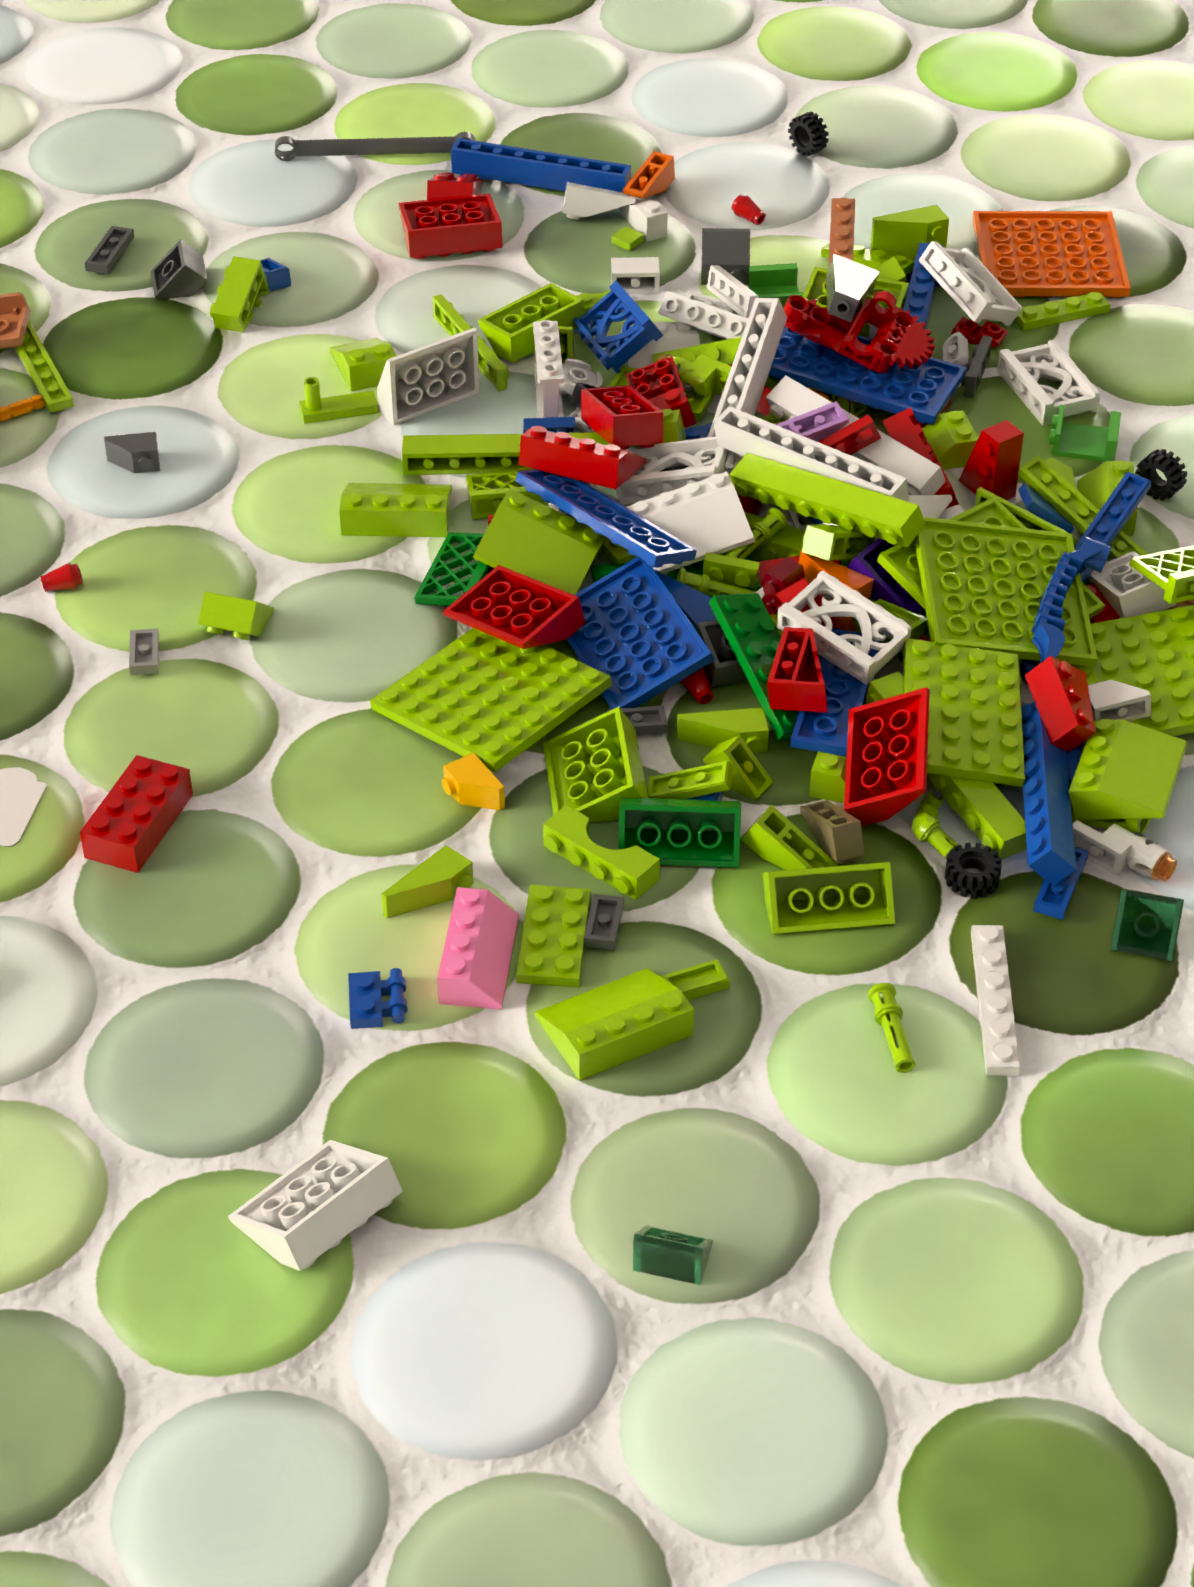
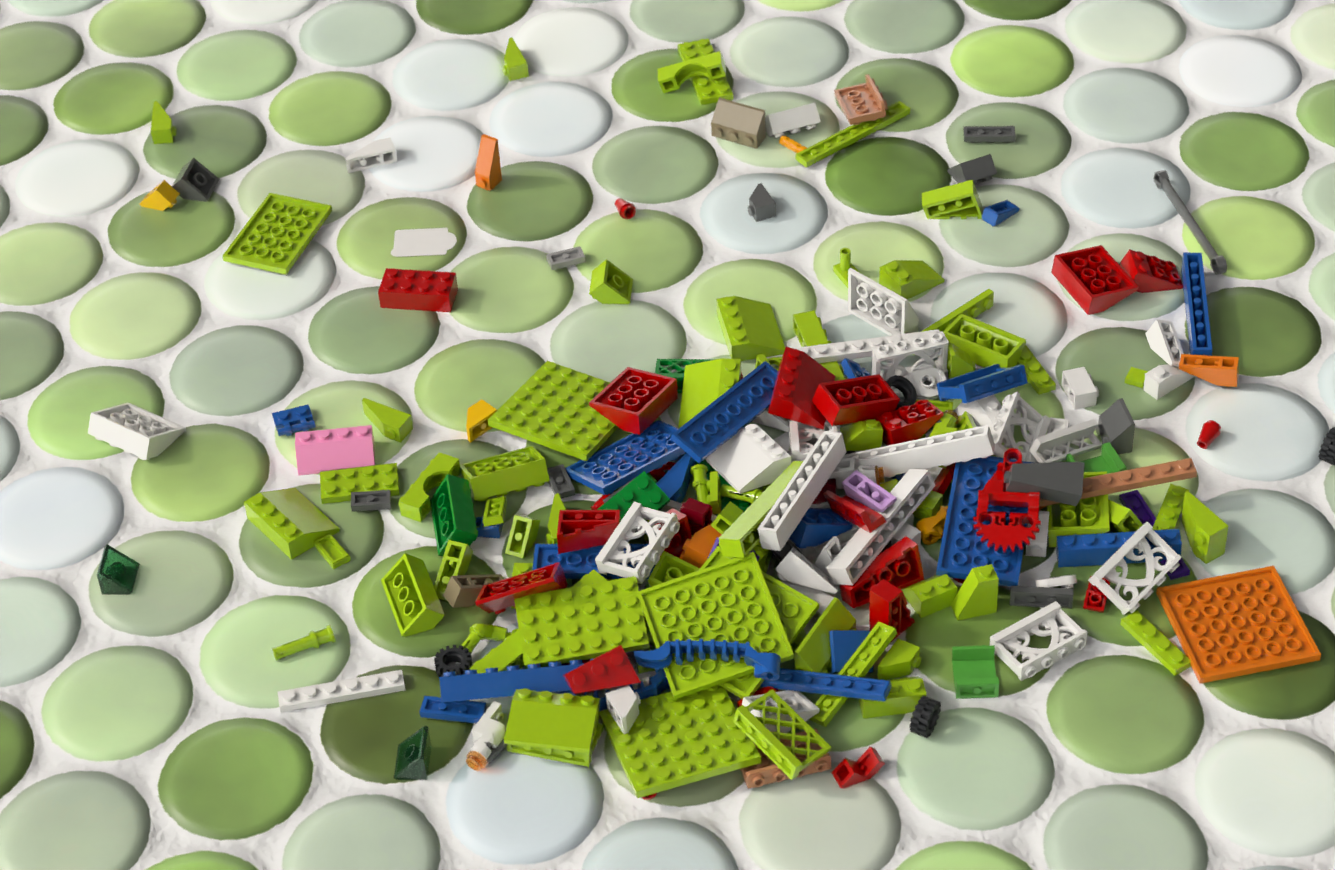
camera: 80 degrees right, 0 degrees up
(504, 404) = (855, 348): none -> white plate
(975, 392) = (977, 594): none -> lime slope

